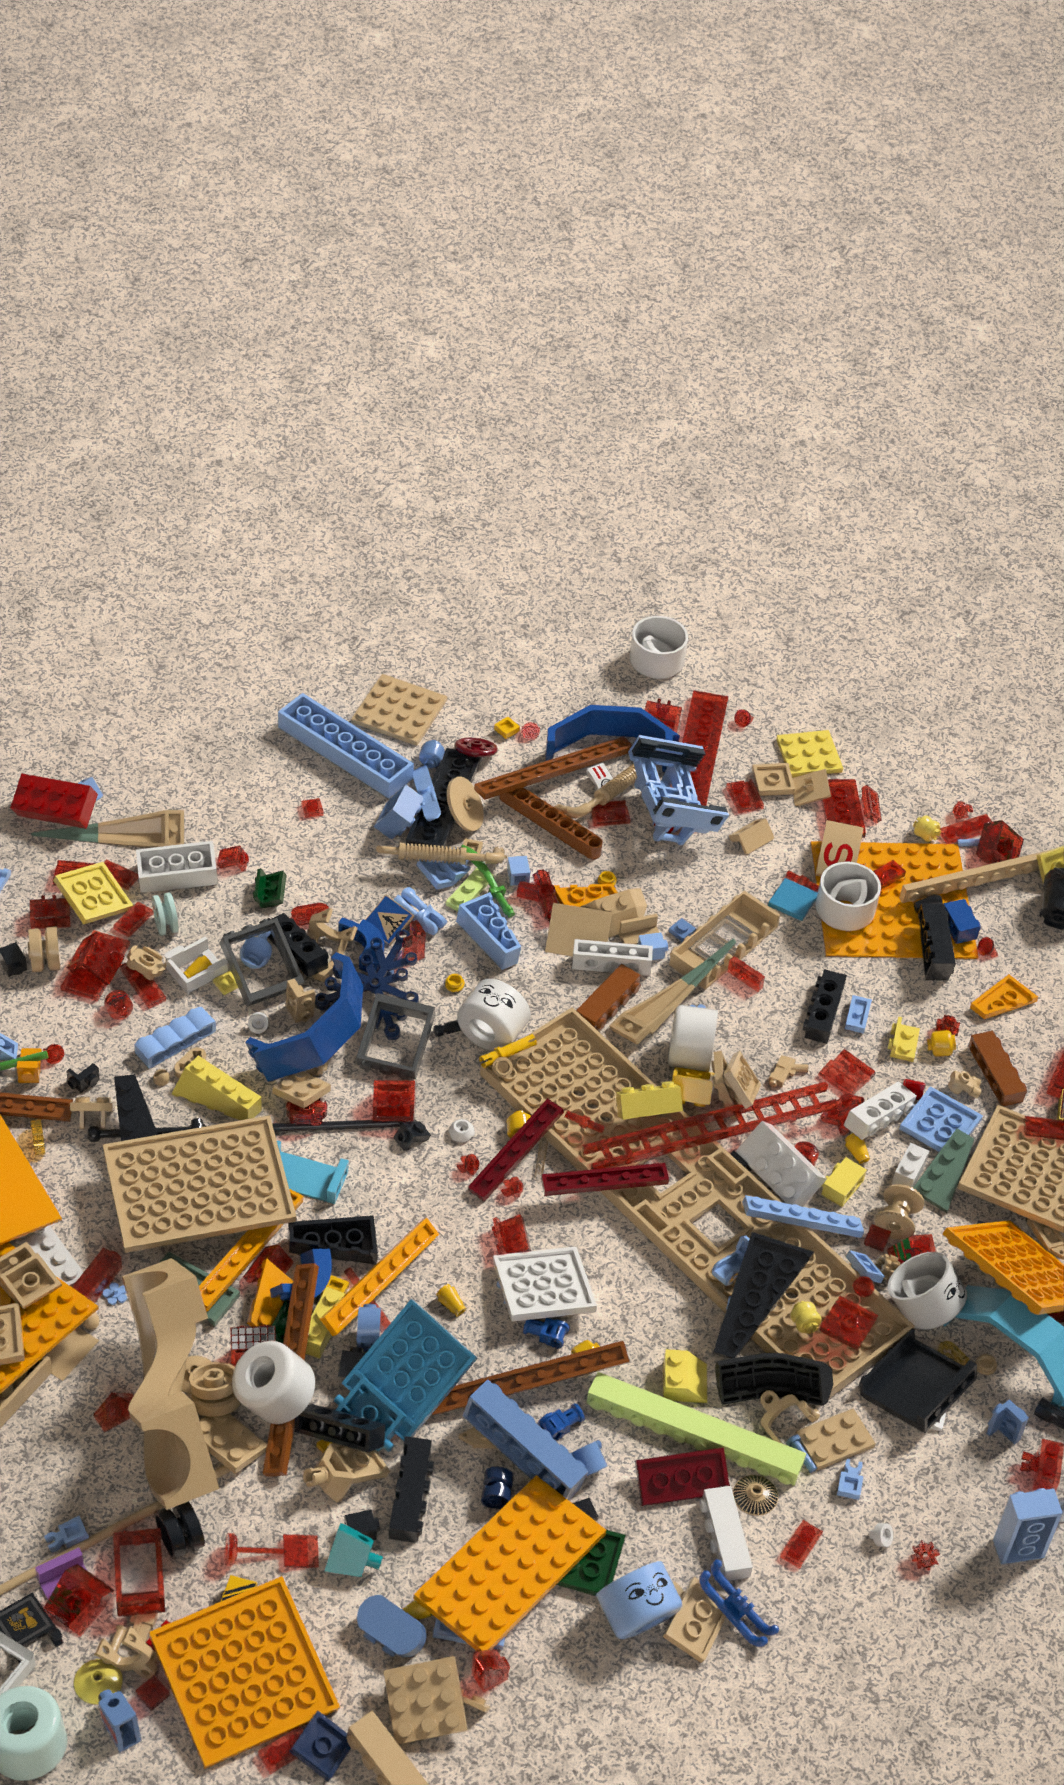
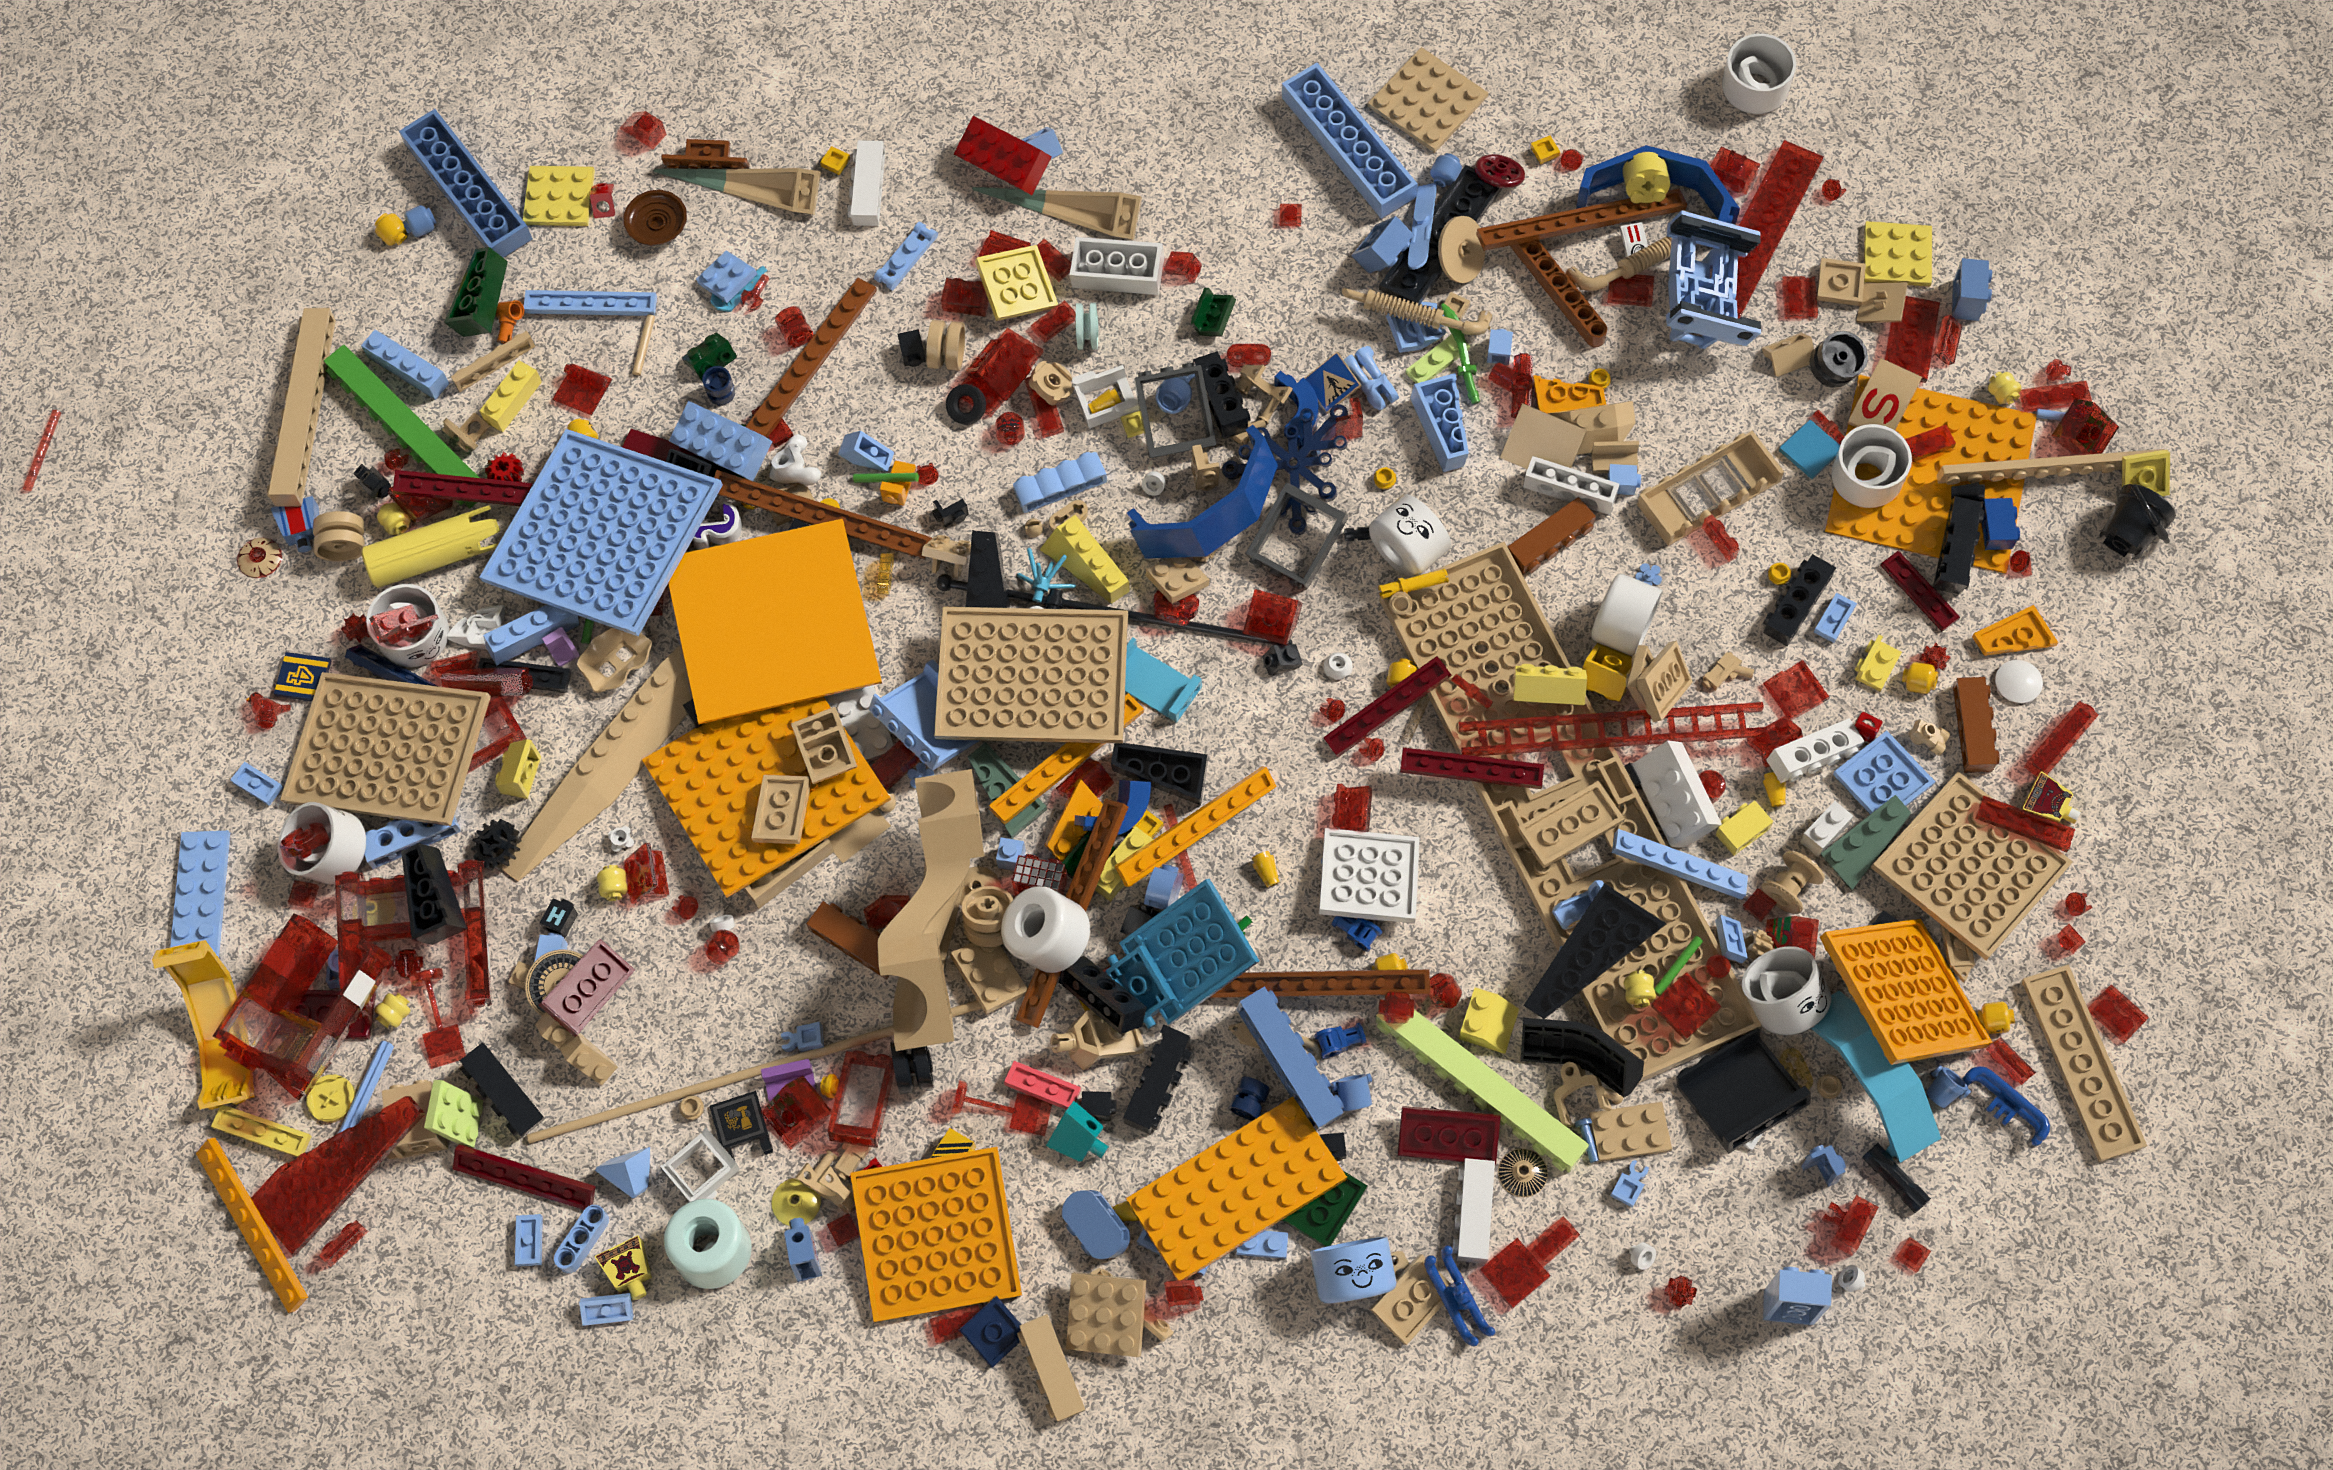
camera: 25 degrees right, 20 degrees up
(82, 1001) = (954, 397): none -> black tyre
(93, 1439) = (846, 935): none -> dark orange brick
(100, 1239) = (911, 716): none -> light blue panel
(104, 1569) = (829, 1085): none -> yellow plate
(183, 1114) = (1042, 583): none -> medium azure plant
(219, 1336) = (1008, 853): none -> light blue brick
(304, 1522) = (1042, 1085): none -> coral plate
(550, 1609) = (1266, 1244): none -> light blue plate
(597, 728) = (1646, 178): none -> light yellow brick
(605, 1378) = (1396, 1007): none -> clear red head
(641, 1361) = (1444, 991): none -> clear red head
(650, 1014) = (1590, 568): tan plate -> none
(682, 929) = (1666, 463): medium blue plate -> none
(702, 1204) = (1570, 824): none -> tan plate
(778, 1577) = (1514, 1273): none -> clear red plate
(793, 829) = (1838, 359): none -> black wheel
(802, 991) = (1779, 573): none -> yellow plate
(830, 1292) = (1678, 965): none -> bright green bar
(876, 764) = (1971, 289): none -> medium blue brick
(917, 983) = (1920, 591): none -> dark red tile
(1018, 1032) = (2018, 681): none -> white dish

